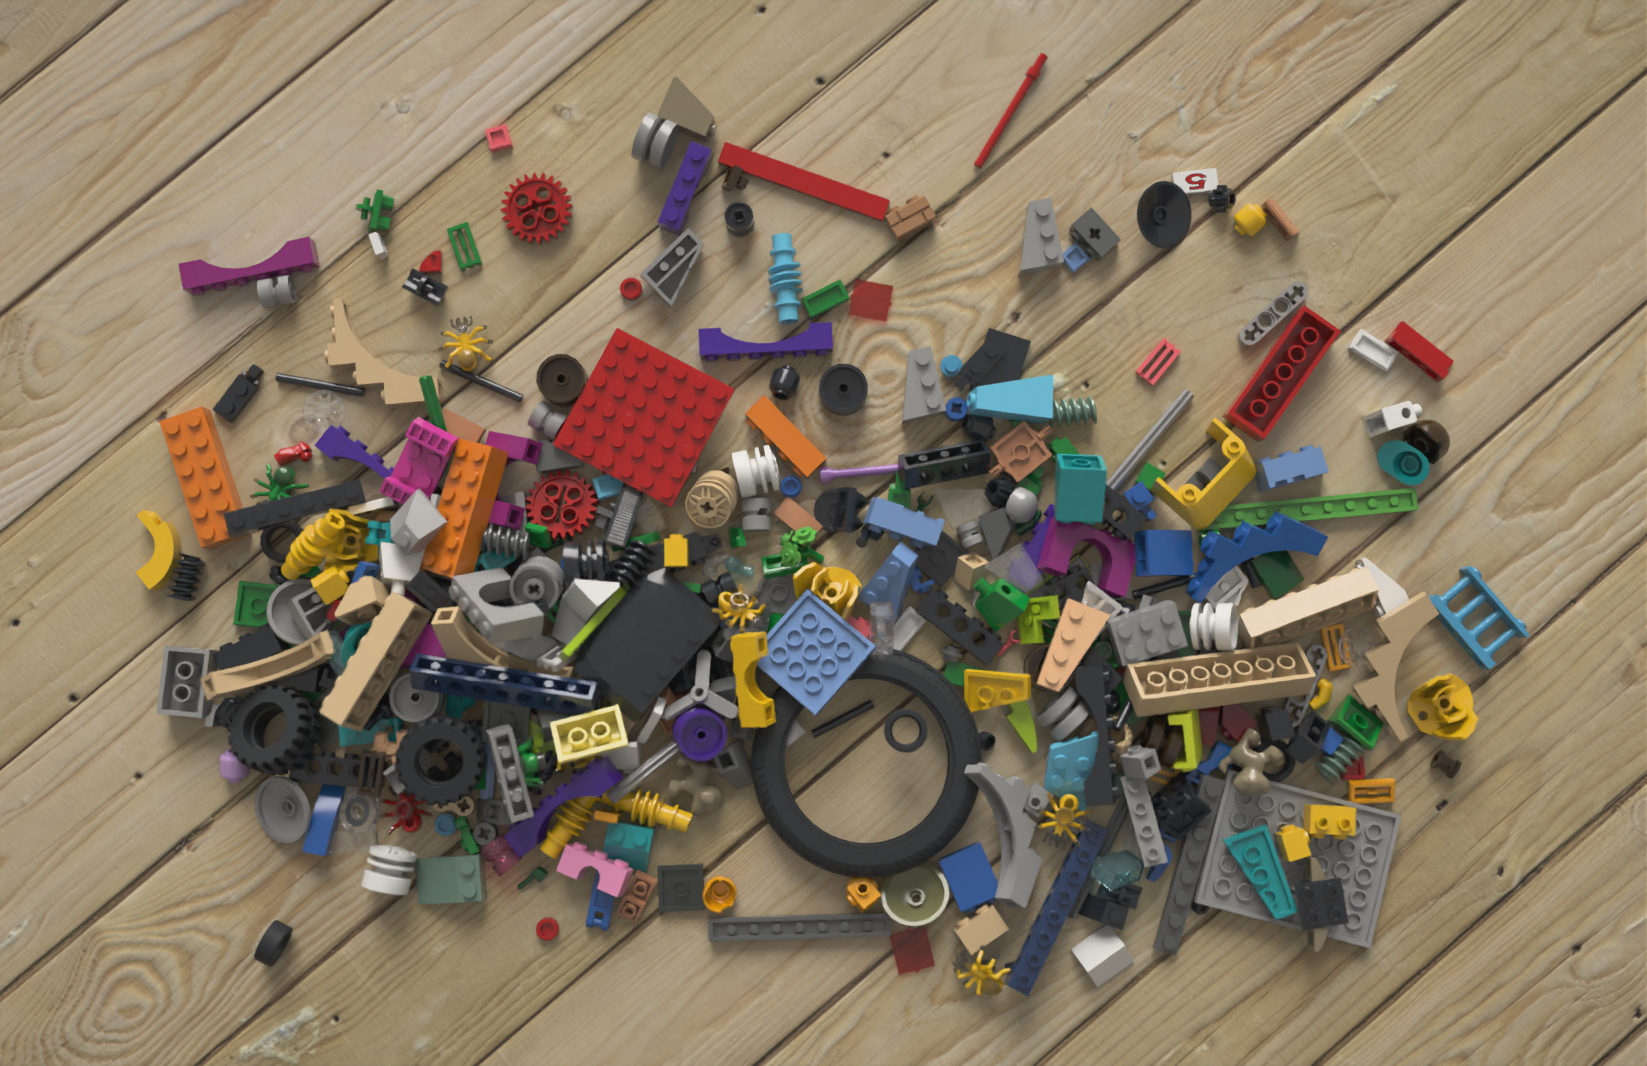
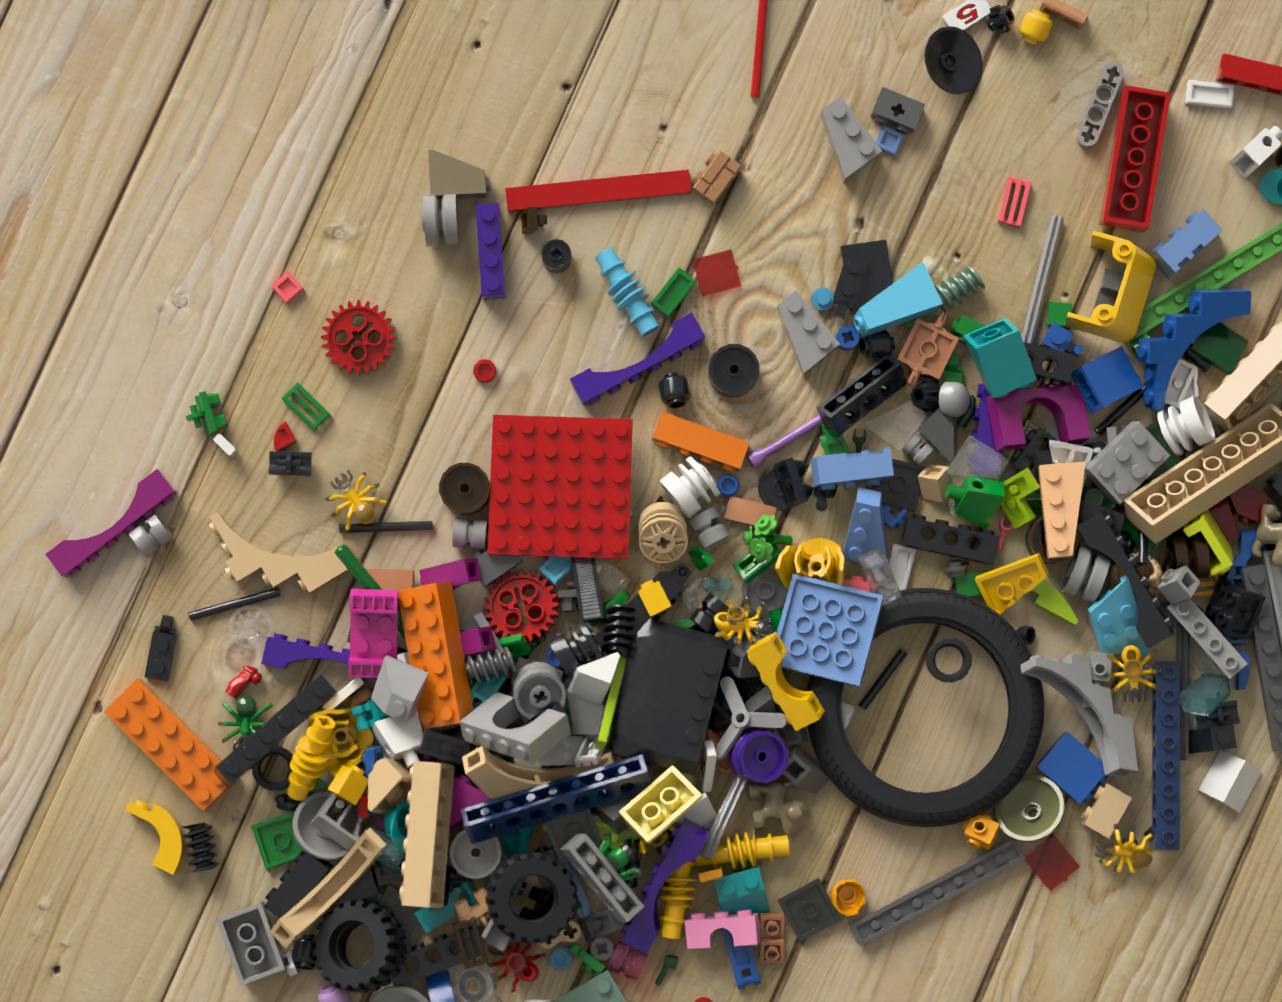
camera: 30 degrees left, 0 degrees up
(672, 267) = (516, 331): light grey wedge -> none

